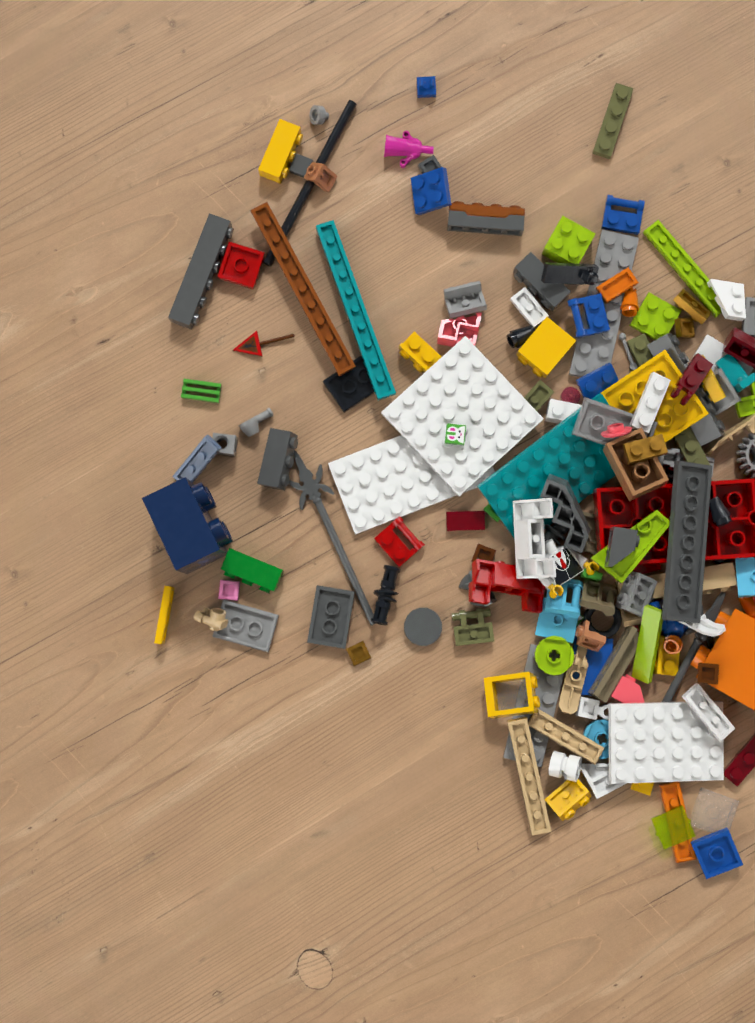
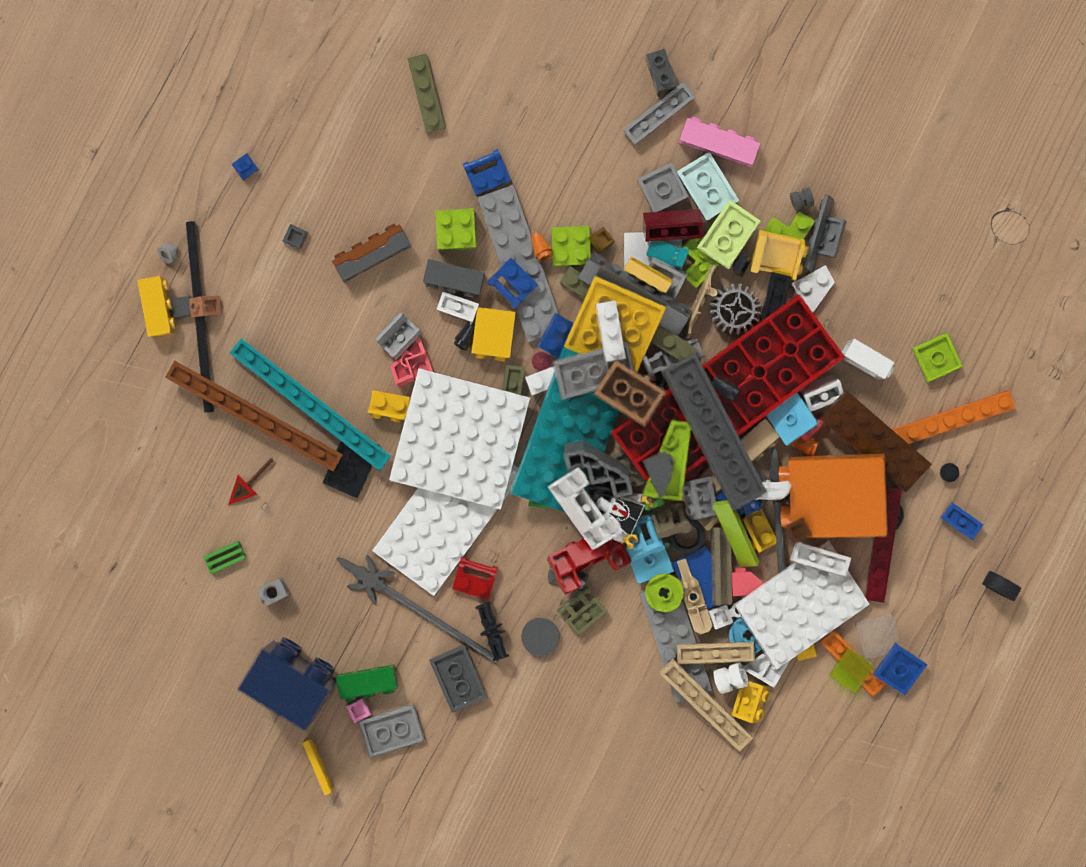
camera: 30 degrees left, 5 degrees up
(198, 459) = (261, 621): sand blue tile -> none
(201, 271) = (156, 455): dark grey brick -> none
(214, 618) = (359, 743): tan plate -> none
(241, 265) = (187, 427): red plate -> none
(251, 426) = (286, 560): light grey bar -> none
(278, 459) = (328, 575): dark grey brick -> none
(358, 653) = (501, 693): pearl gold tile -> none
(405, 146) = (265, 232): dark pink piece -> none
(431, 191) = (308, 259): blue plate -> none
(455, 434) = (463, 460): tile -> none
(465, 520) = (519, 524): dark red tile -> none
(483, 553) = (552, 544): reddish brown plate -> none
(511, 695) = (649, 648): yellow window -> none
(570, 273) = (473, 258): black hinge -> none
(589, 639) = (685, 560): nougat bracket -> none
(616, 430) = (596, 375): coral piece -> none
(617, 285) = (520, 240): orange tile -> none
(633, 366) = (553, 280): light grey hinge -> none
(645, 449) = (629, 378): pearl gold plate -> none
(672, 644) = (757, 520): orange plate -> none
(683, 265) = (571, 185): lime tile -> none
(692, 306) = (596, 216): pearl gold plate -> none
(692, 378) = (632, 287): dark red hinge -> none
(730, 298) = (624, 189): white wing -> none

